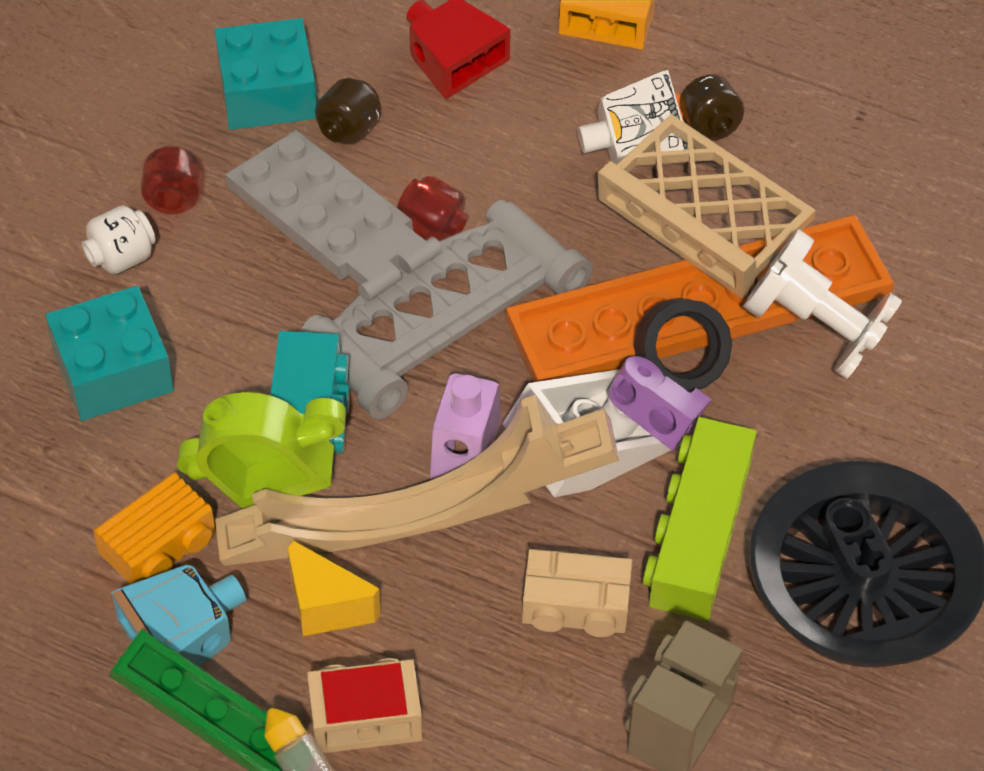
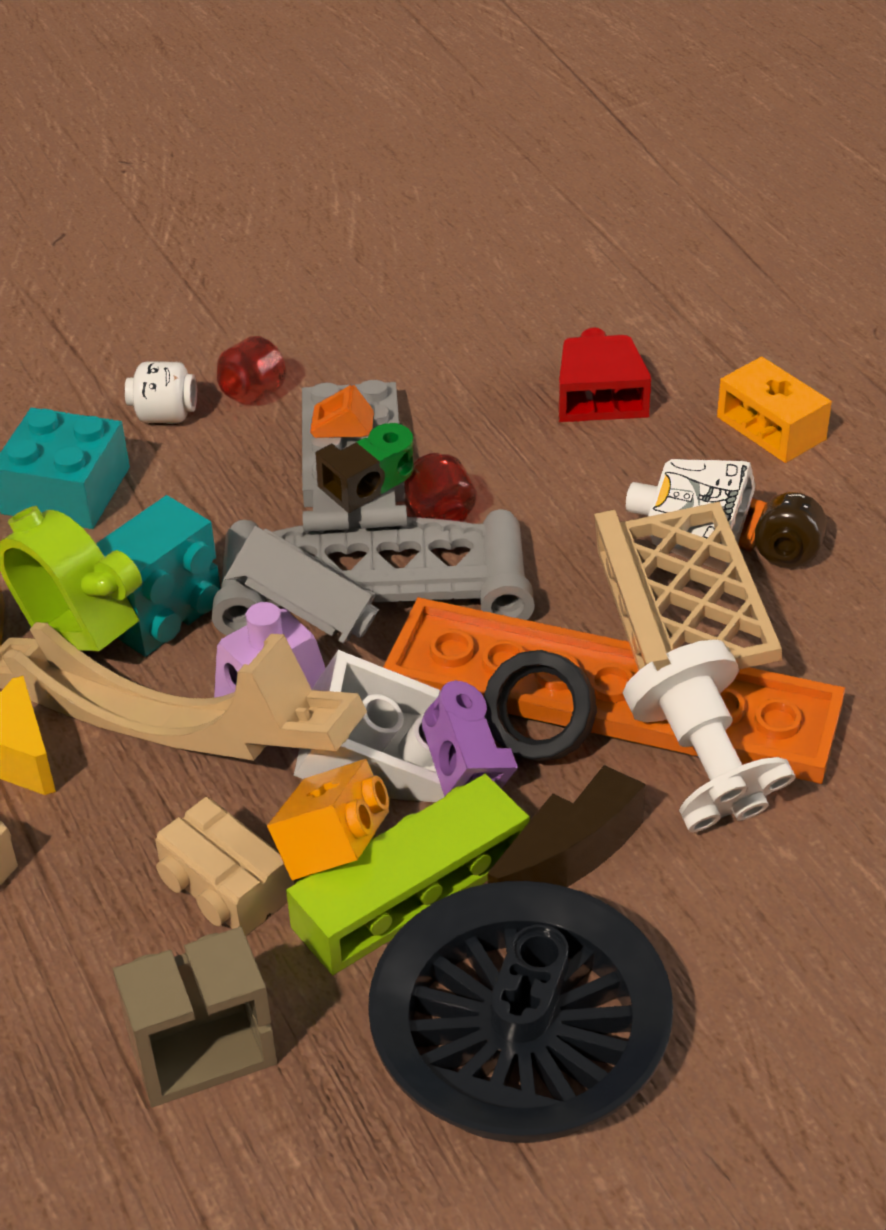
camera: 40 degrees right, 10 degrees down
(266, 73) = (411, 328): teal brick -> none
(306, 186) = (342, 415): none -> orange slope
(348, 111) = (452, 386): dark brown head -> none
(387, 232) = (366, 467): none -> leg
(410, 345) = (304, 585): none -> light grey window
(633, 512) = (329, 819): none -> light orange brick
(780, 425) = (574, 838): none -> dark brown slope

